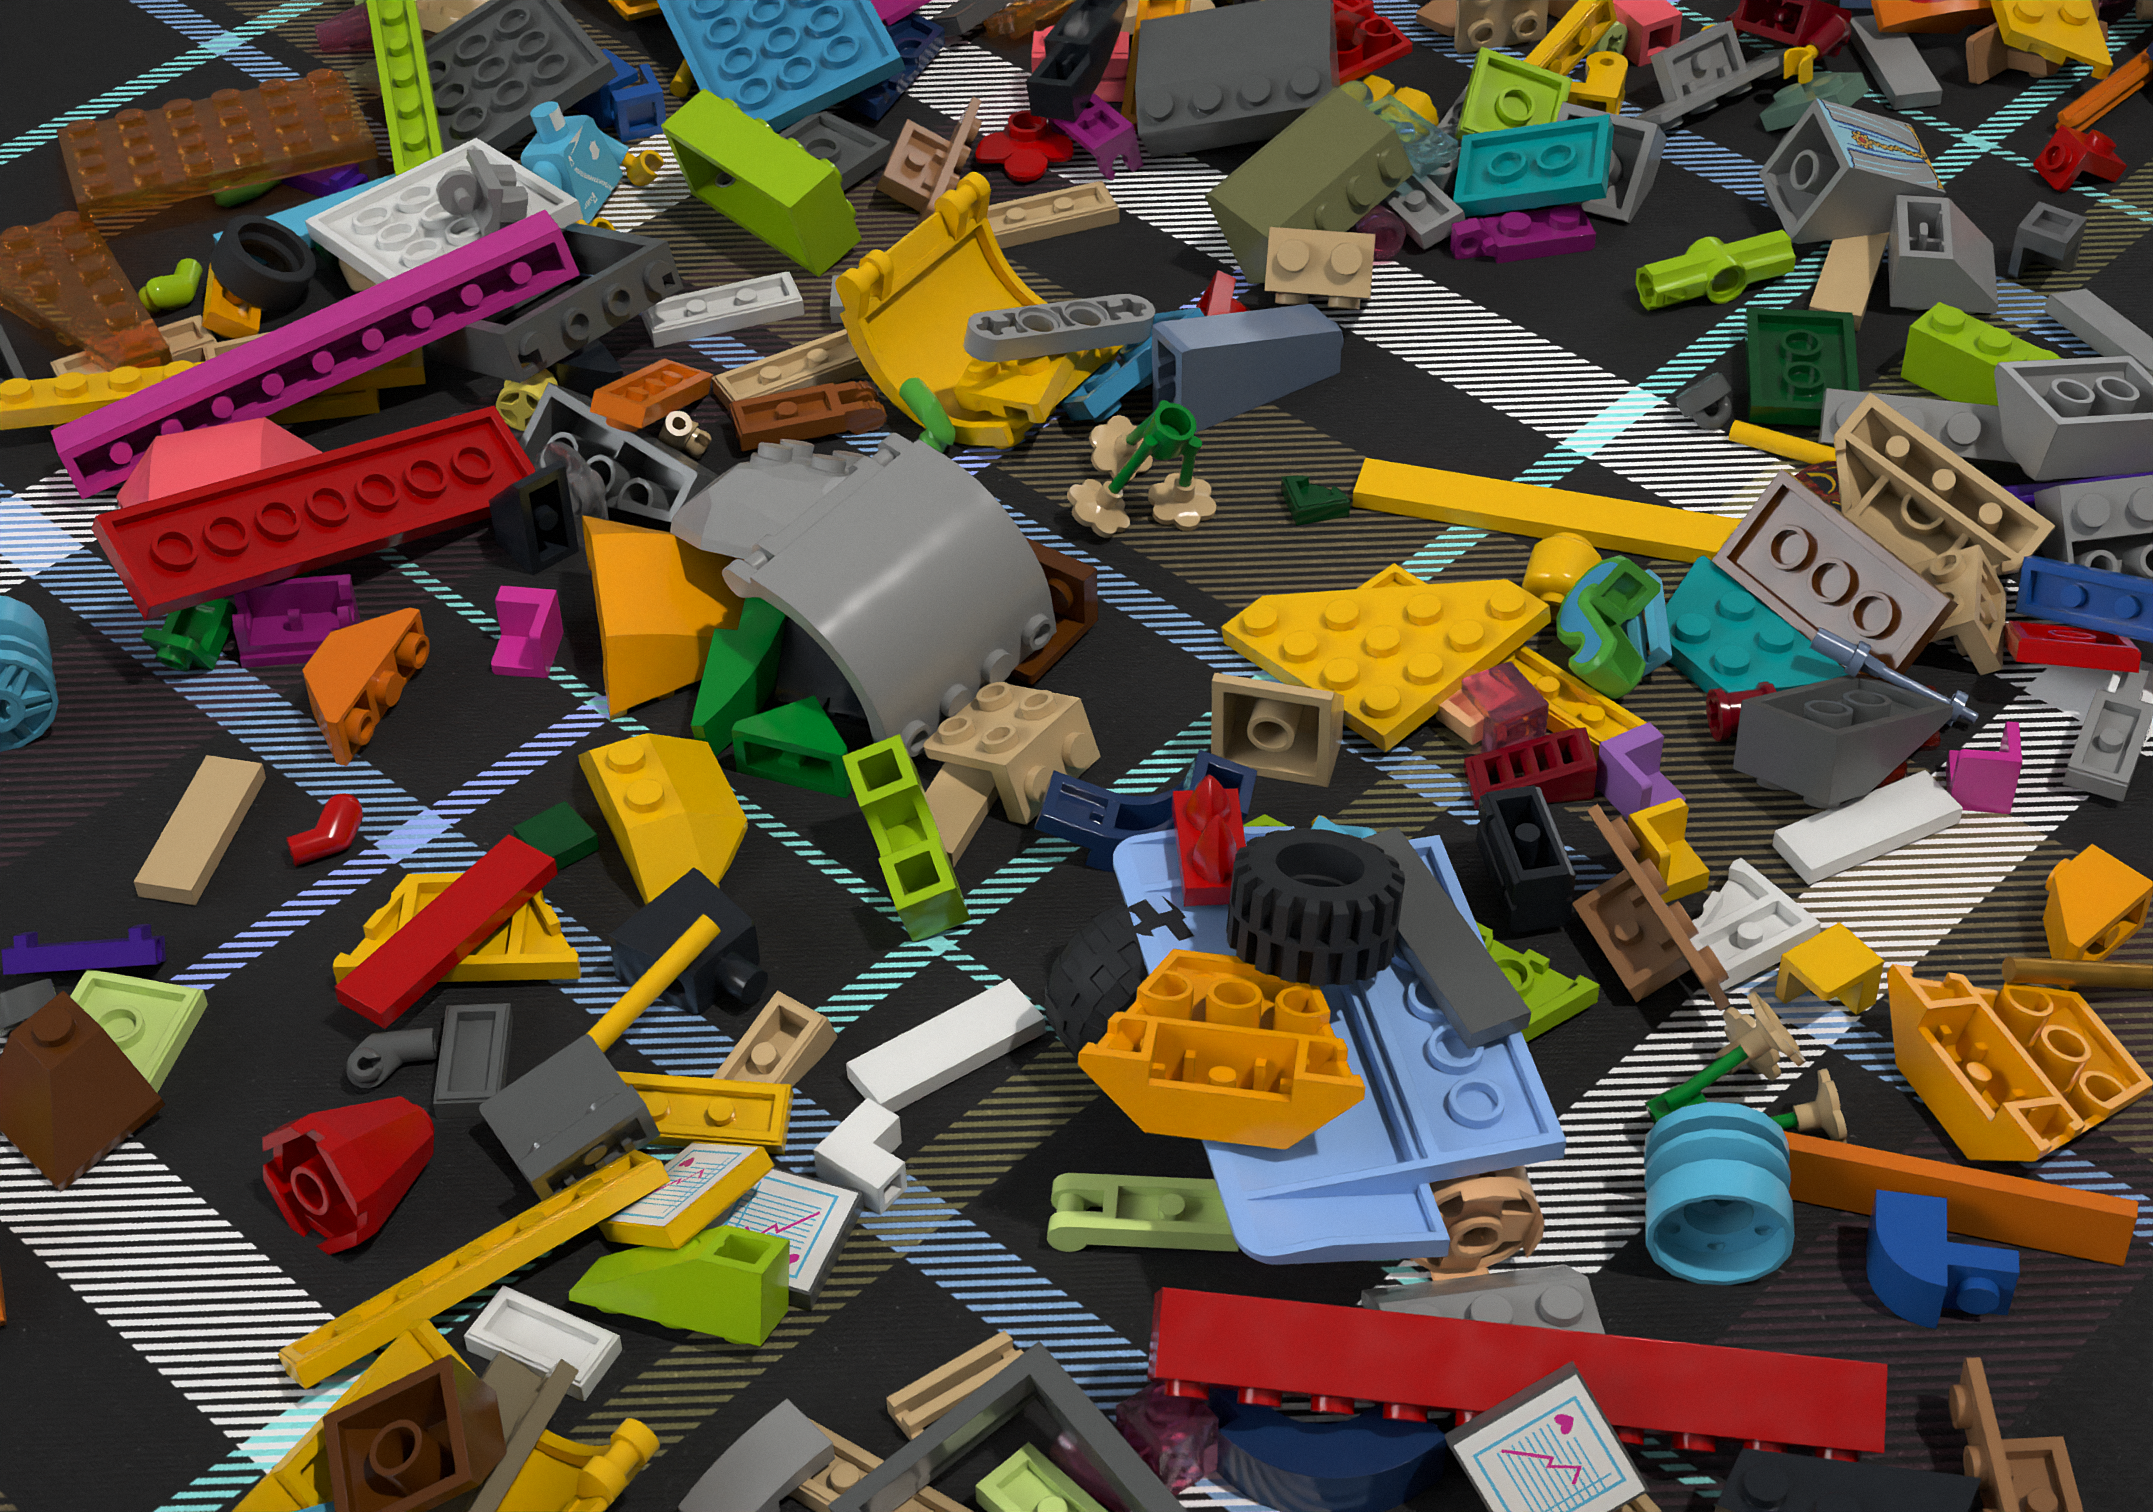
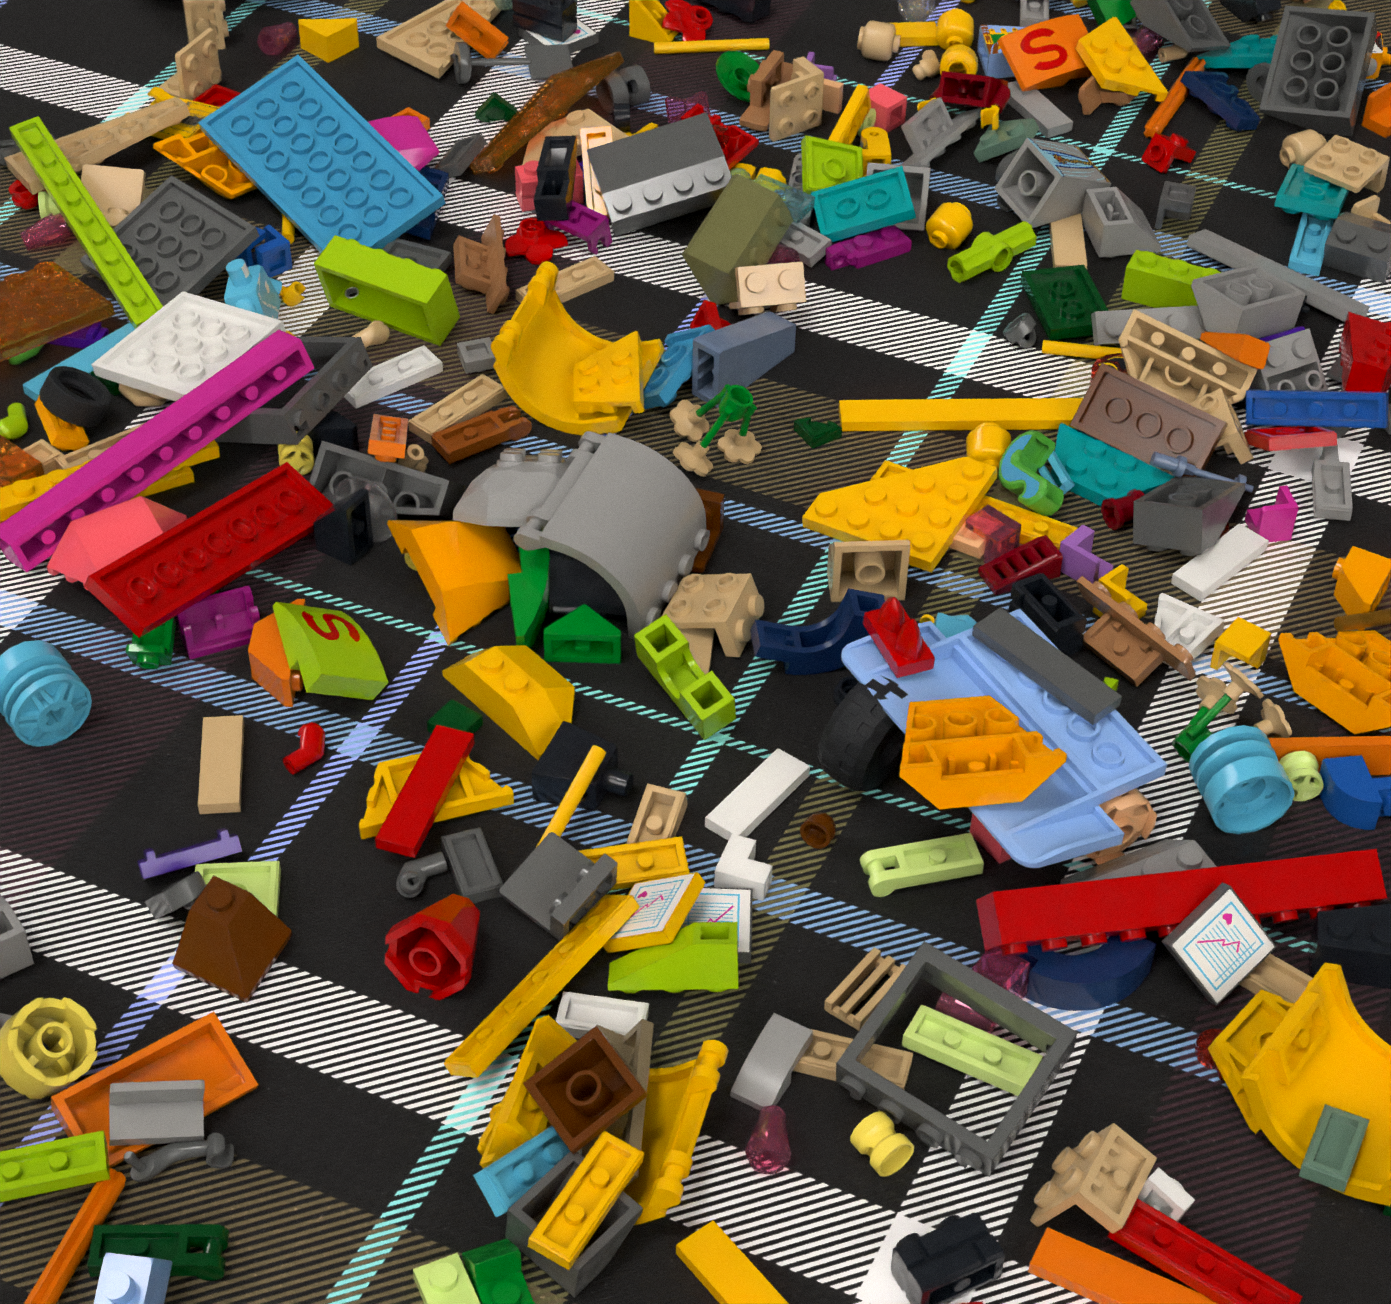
camera: 20 degrees left, 0 degrees up
(414, 693) = (329, 651): none -> lime slope
(485, 193) = (223, 326): light grey hips -> none
(529, 631) = (372, 600): dark pink panel -> none
(724, 244) = (374, 334): none -> tan arm
(930, 412) = (563, 417): bright green arm -> none
(1010, 1121) = (818, 830): none -> reddish brown hinge
(1058, 327) = (631, 351): light grey beam -> none
(1314, 906) = (984, 660): black tyre -> none
(1664, 219) = (949, 225): none -> yellow head
(1835, 1209) = (1303, 773): none -> yellowish green wheel
(2031, 486) = (1239, 347): none -> orange slope

